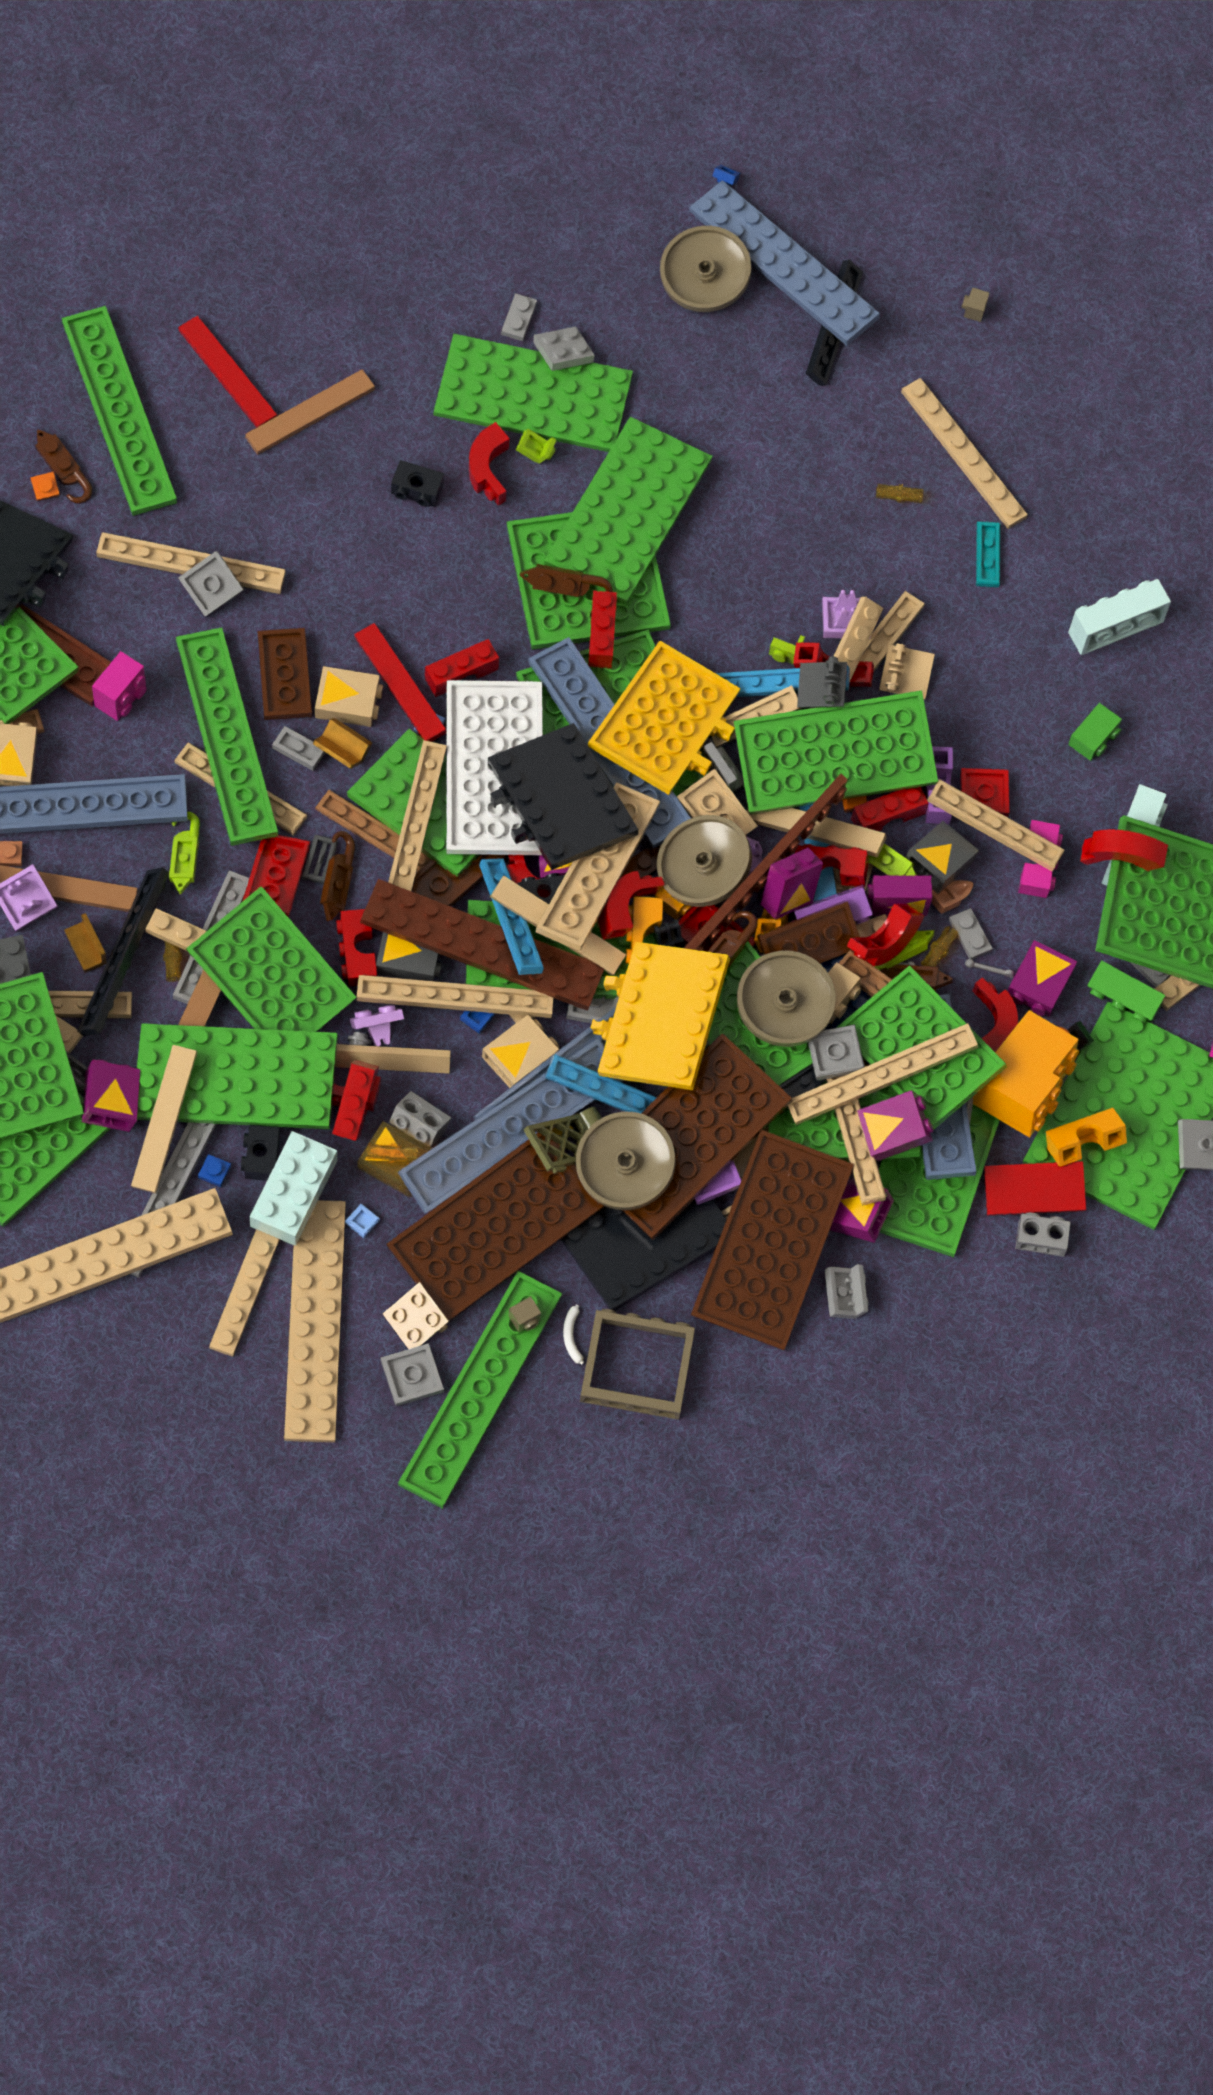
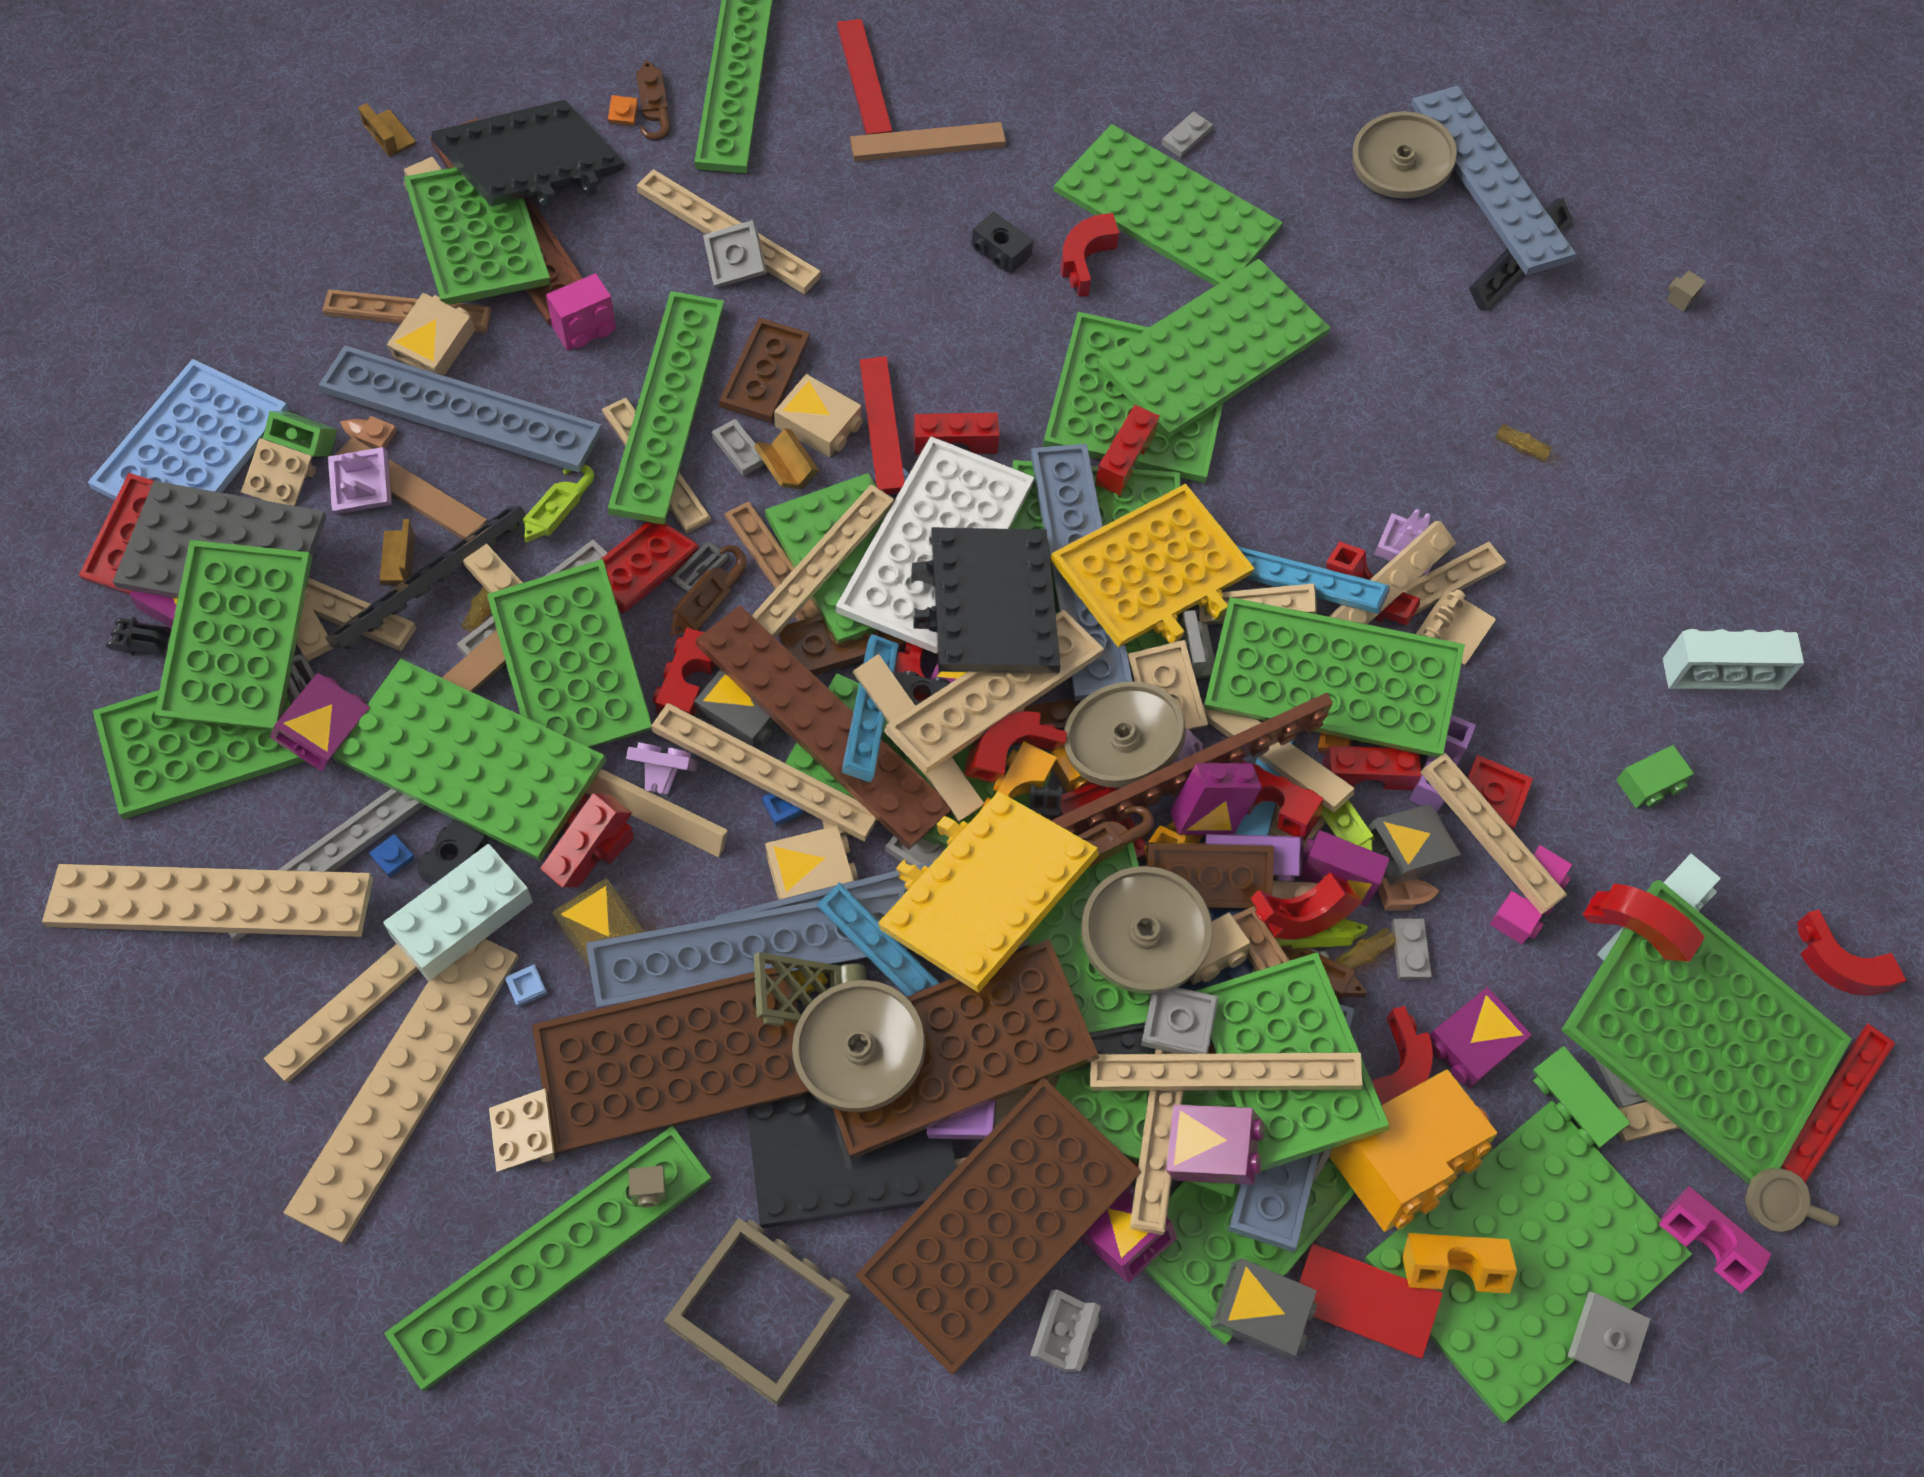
camera: 25 degrees right, 5 degrees down
(164, 1119) = (358, 772): tan tile -> none
(359, 1039) = (633, 776): light grey plate -> none
(392, 1152) = (593, 918): clear yellow pin -> none
(412, 1374) = (478, 1200): light grey plate -> none
(420, 1119) = (651, 895): light grey brick -> none
(535, 446) = (1144, 254): lime bracket -> none
(563, 348) = (1219, 174): light grey plate -> none
(563, 580) = (1108, 386): reddish brown plate -> none
(568, 1335) = (695, 1233): white piece -> none
(726, 174) = (1464, 83): blue plate -> none
(783, 651) = (1320, 549): lime bracket -> none
(822, 684) = (1350, 594): dark grey hinge -> none
(964, 453) = (1614, 432): tan plate -> none
(971, 1221) = (1264, 1309): none -> dark grey brick
(988, 554) = (1600, 541): teal tile -> none
(1008, 973) = (1396, 983): light grey hinge -> none
(1042, 1241) = (1348, 1375): light grey brick -> none
(1080, 1032) = (1502, 1124): black plate -> none

